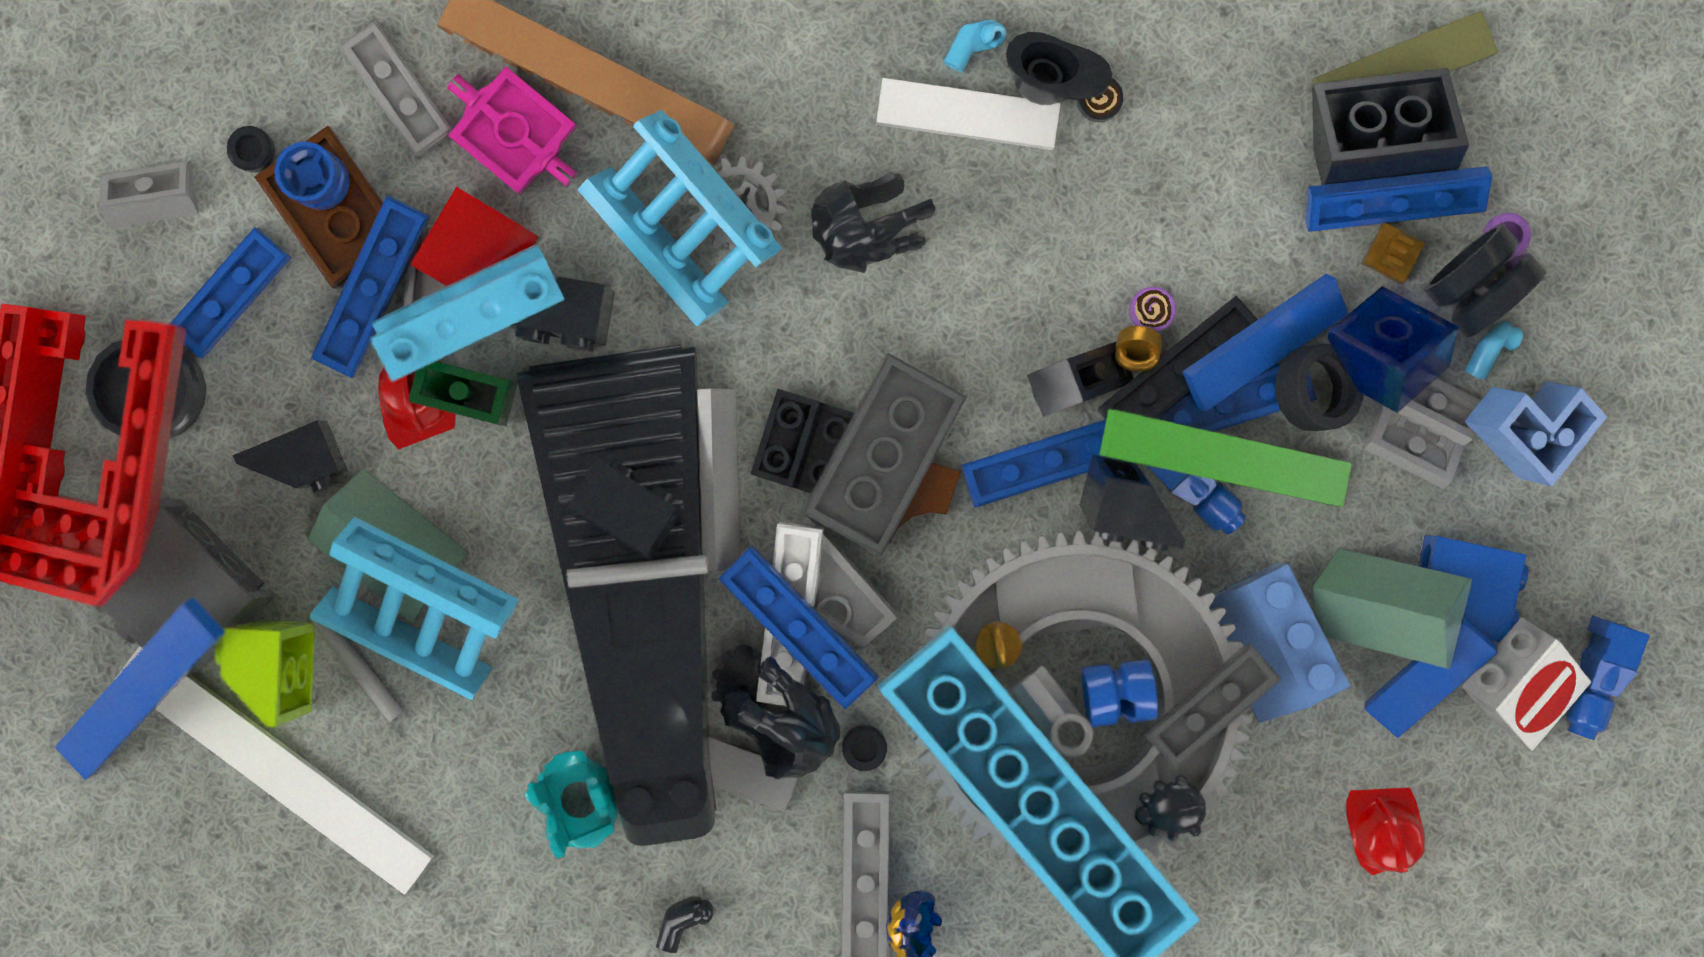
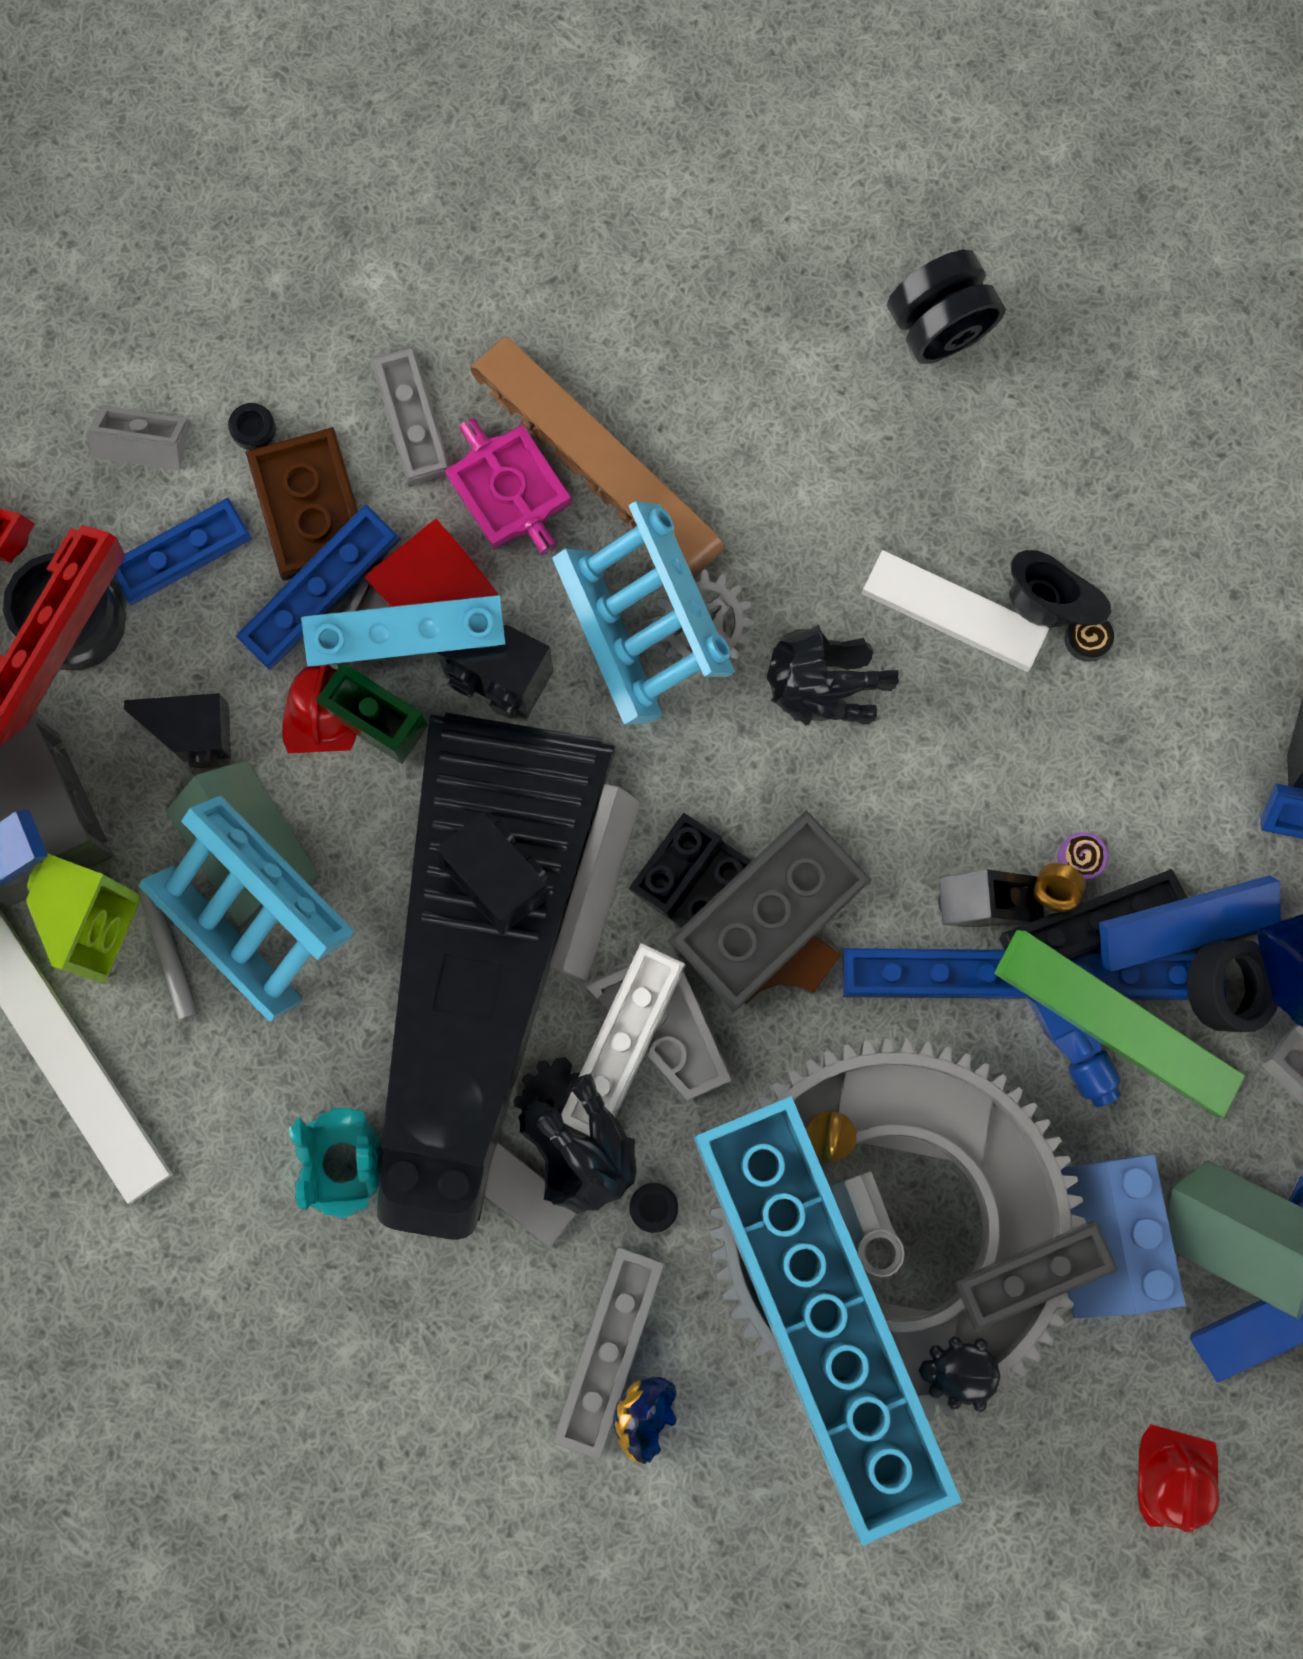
camera: 10 degrees right, 10 degrees down
(312, 175) = (301, 462): blue wheel -> none
(637, 571) = (484, 940): light grey bar -> none
(681, 917) = (404, 1324): black arm -> none
(798, 627) = (628, 1055): blue tile -> none
(974, 38) = (983, 543): medium azure arm -> none
(1119, 693) = (943, 1226): blue wheel -> none
(1124, 504) = (1008, 1036): black slope -> none

